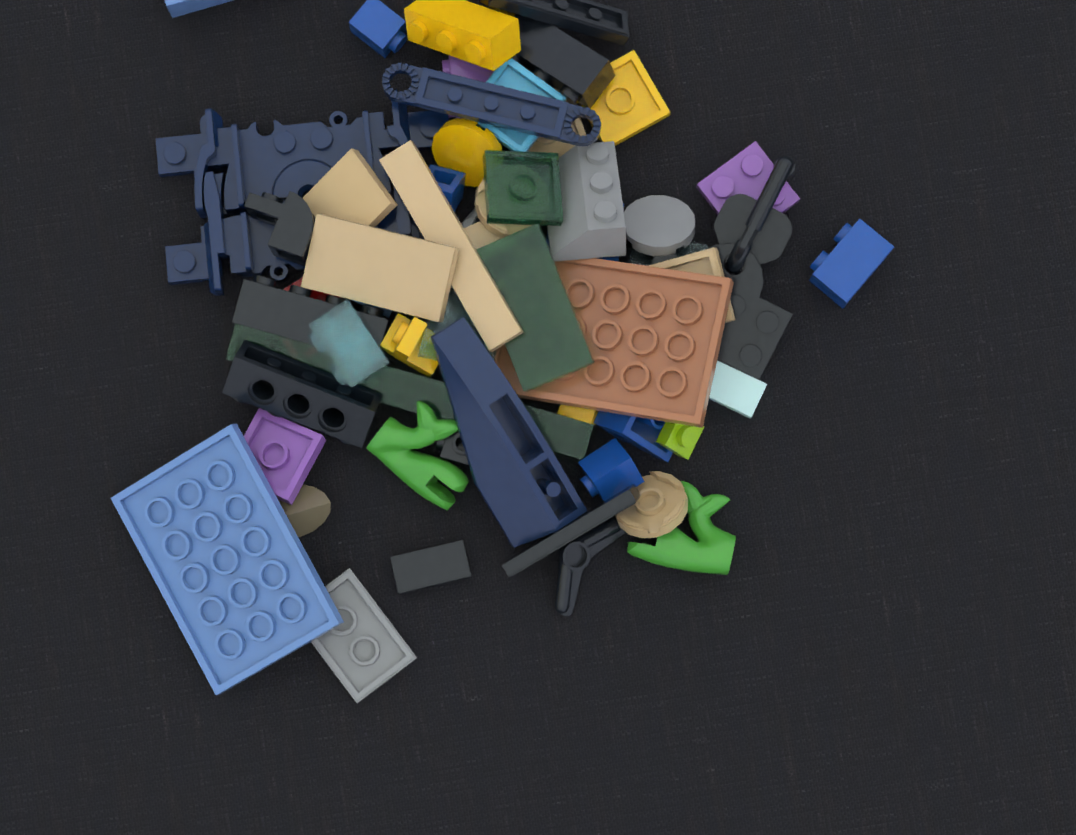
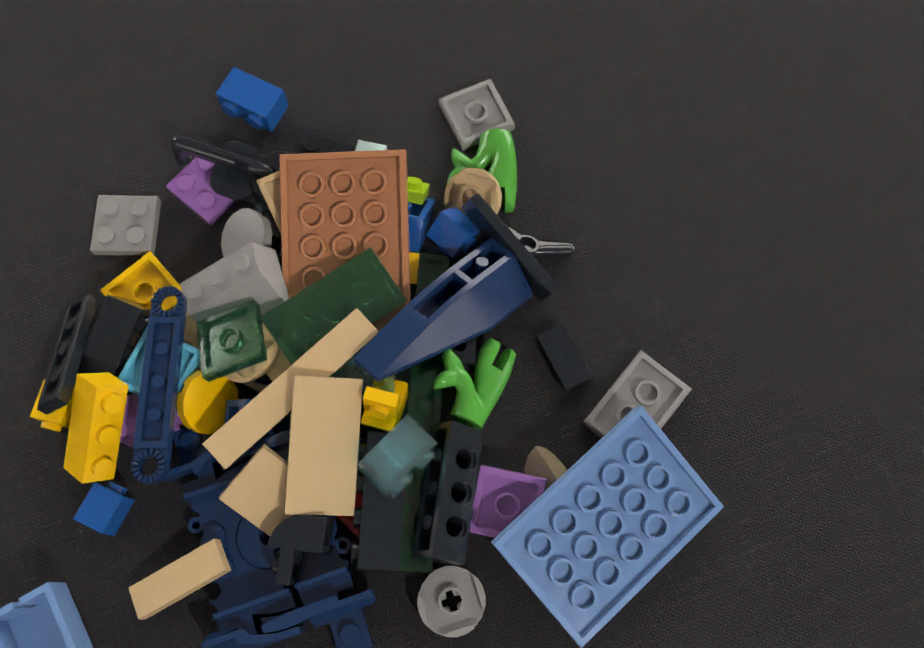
camera: 105 degrees left, 10 degrees down
(177, 359) = (440, 618): none -> light grey plate
(284, 95) = (179, 579): none -> tan tile
(716, 88) = (125, 225): none -> light grey plate
(774, 541) = (474, 112): none -> light grey tile

